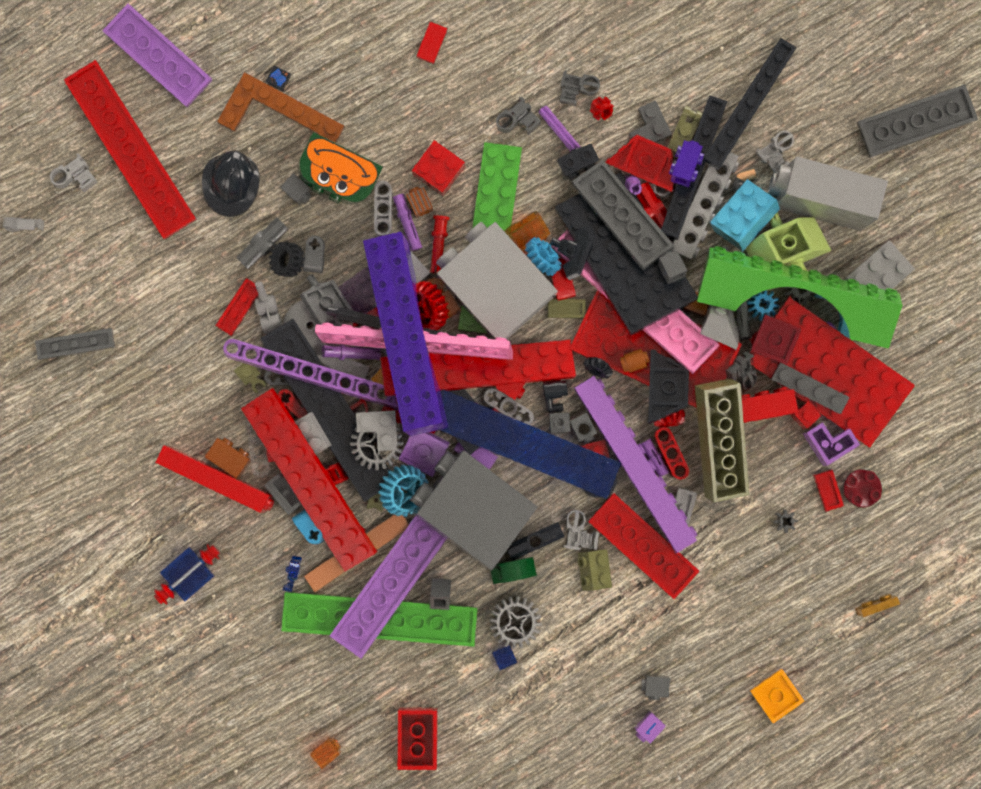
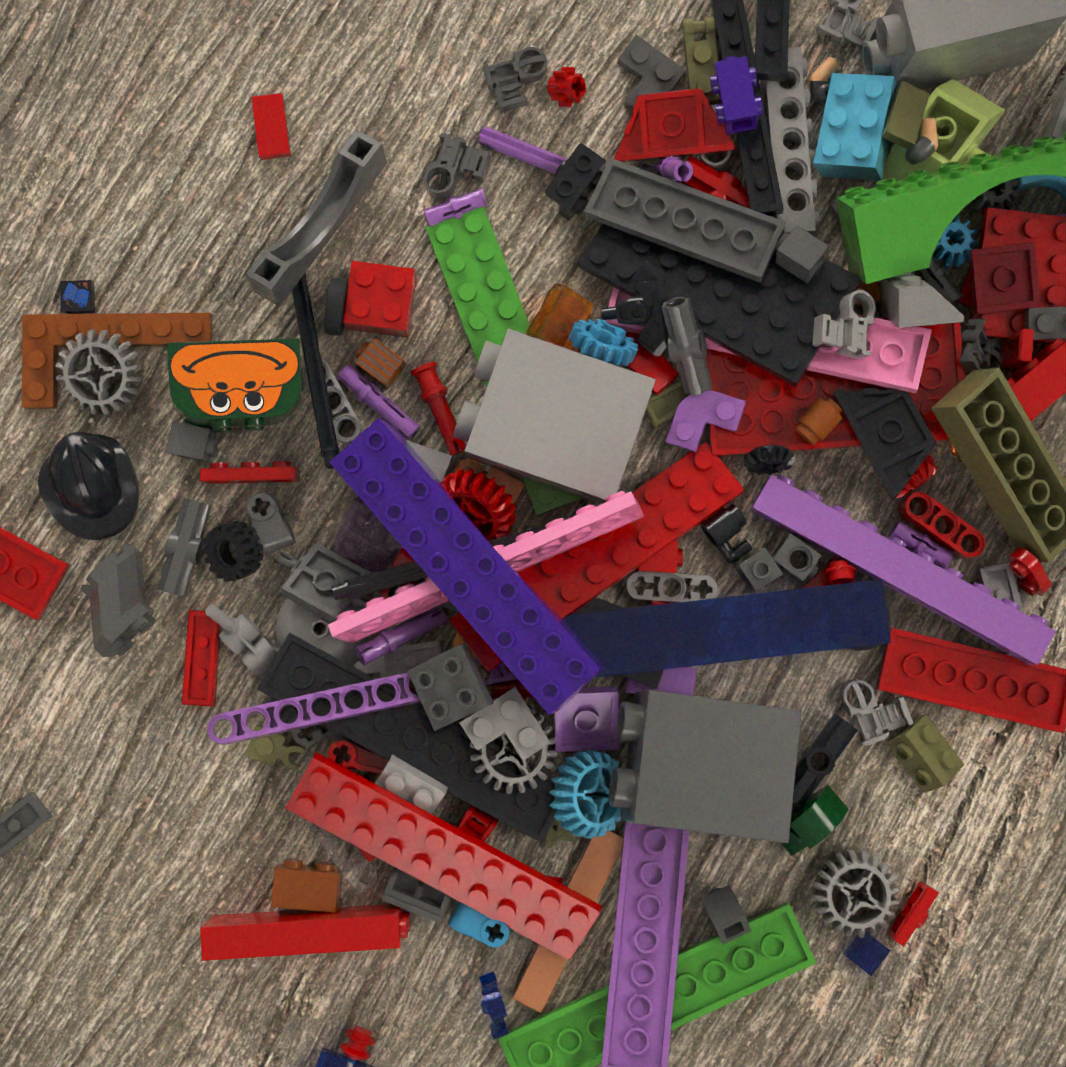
camera: 30 degrees left, 0 degrees up
(212, 253) = (118, 602): none -> dark grey brick
(265, 133) = (100, 384): none -> light grey gear
(318, 222) = (249, 473): none -> red plate
(361, 391) = (450, 686): none -> dark grey plate
(386, 175) = (315, 372): none -> black piece
(399, 121) = (286, 261): none -> dark grey arch
(412, 159) = (335, 306): none -> black tyre
(506, 140) = (455, 207): none -> medium lavender pin
(540, 650) = (913, 913): none -> red plate
(575, 320) = (700, 409): none -> medium lavender plate
(586, 282) = (687, 345): none -> dark grey piece
(601, 447) = (840, 572): none -> red plate
(674, 323) = (849, 329): none -> light grey piece
(702, 499) = (1029, 571): none -> red plate
(762, 381) = (1017, 350): none -> red tile
(771, 223) = (905, 115): none -> olive tile
(773, 245) = (926, 144): none -> arm

